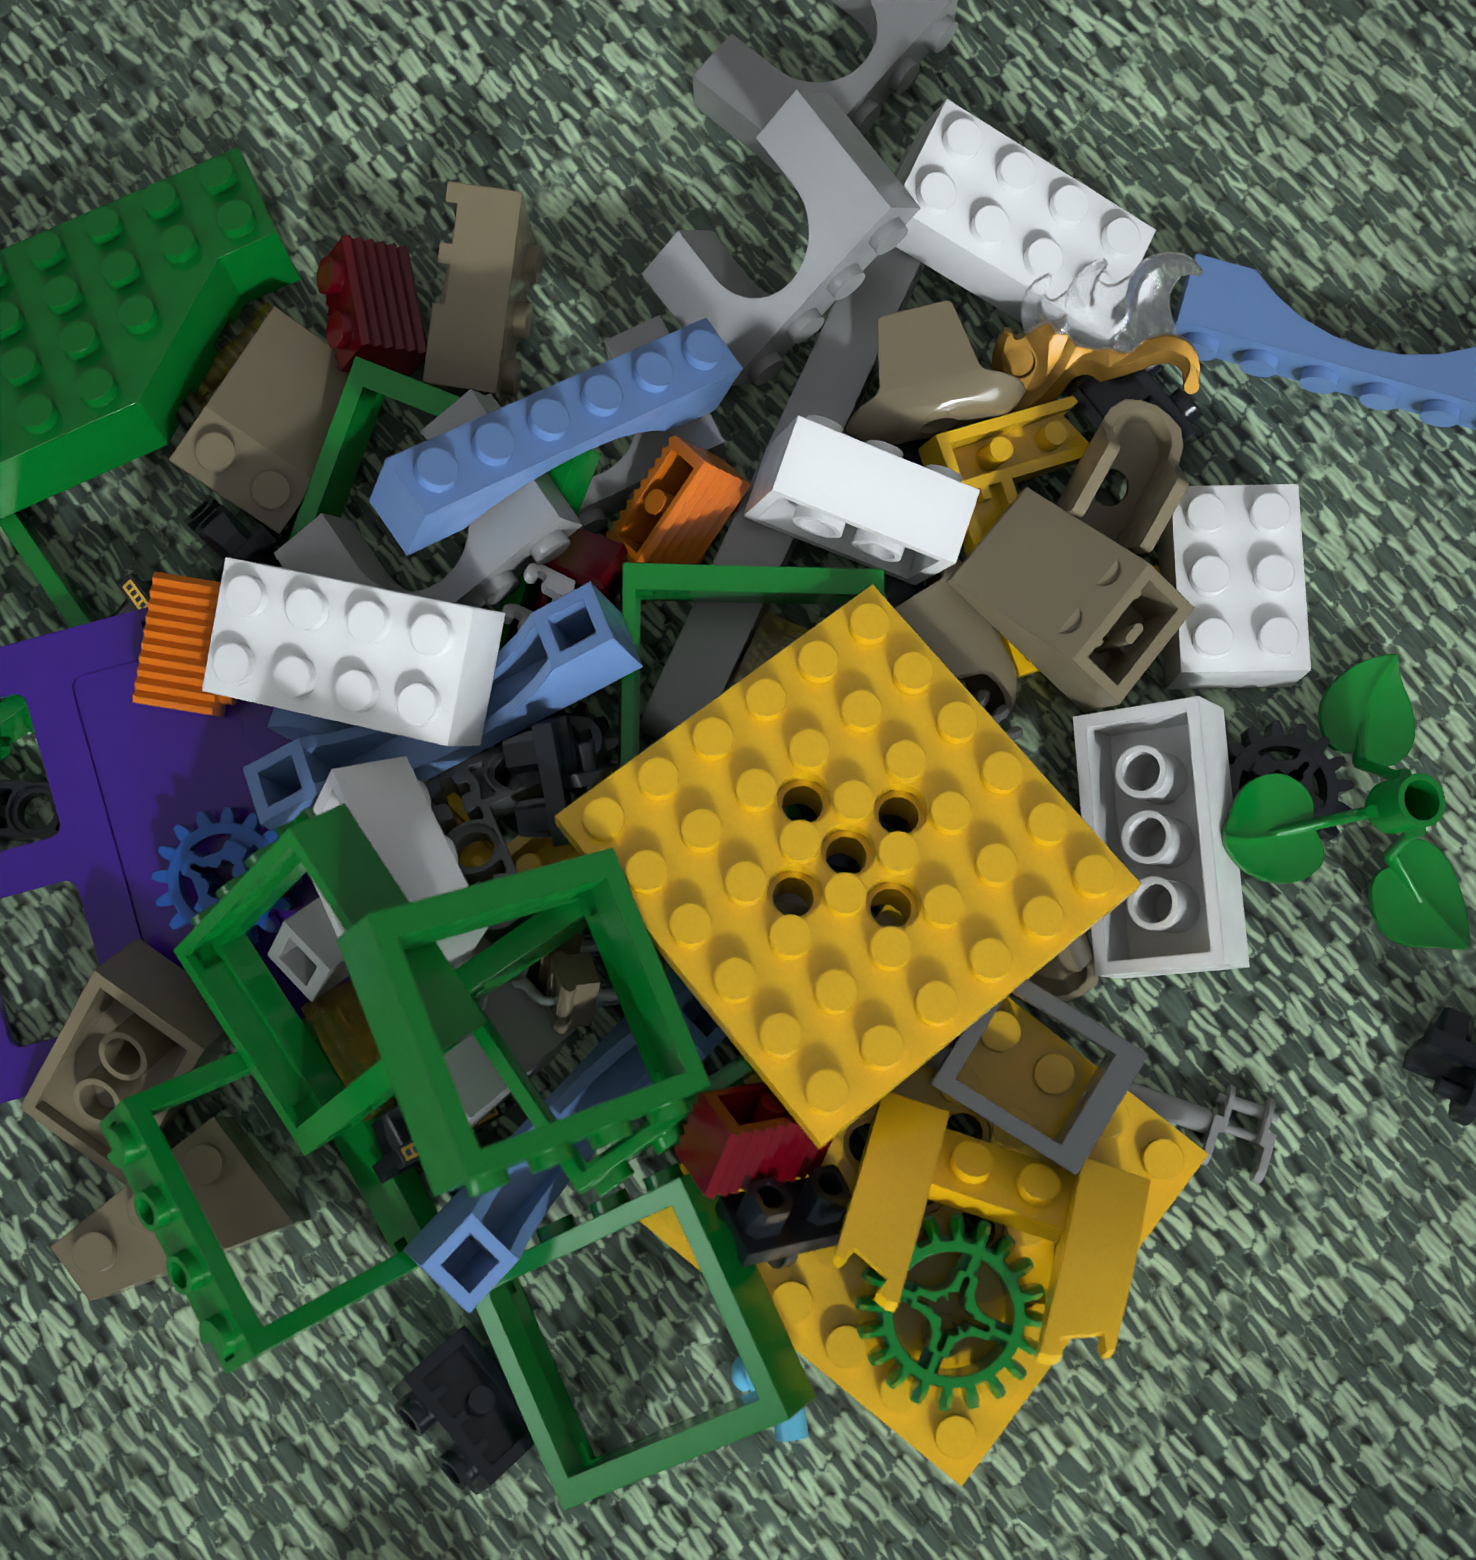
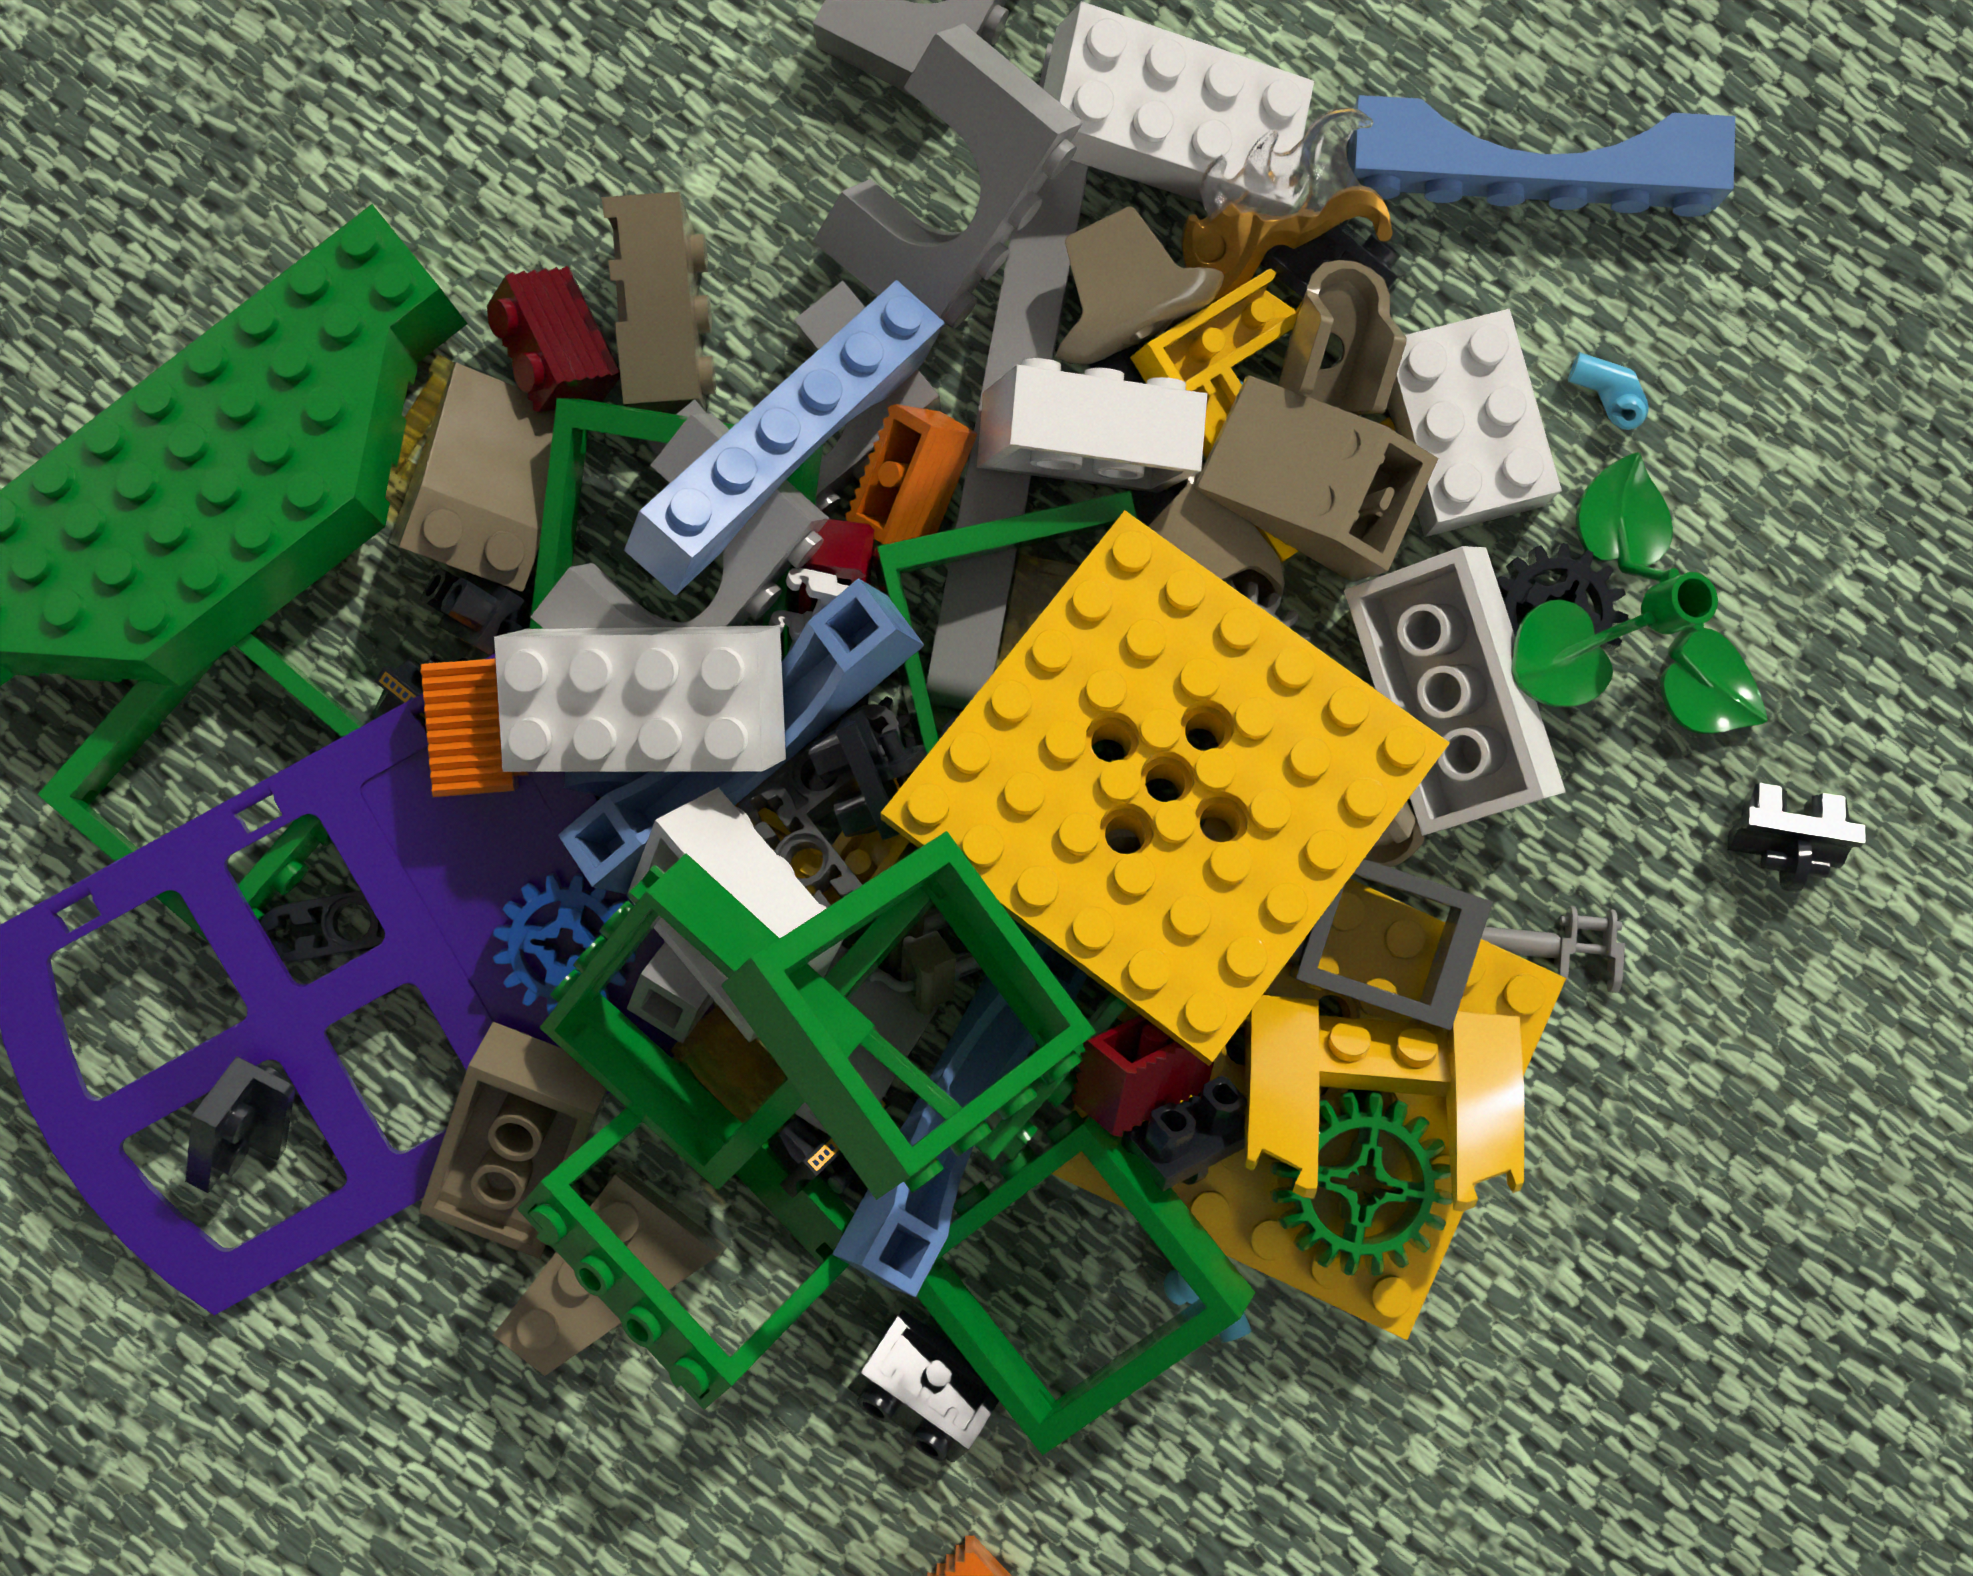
camera: 20 degrees left, 5 degrees up
(1387, 587) = (1616, 387): none -> medium azure arm

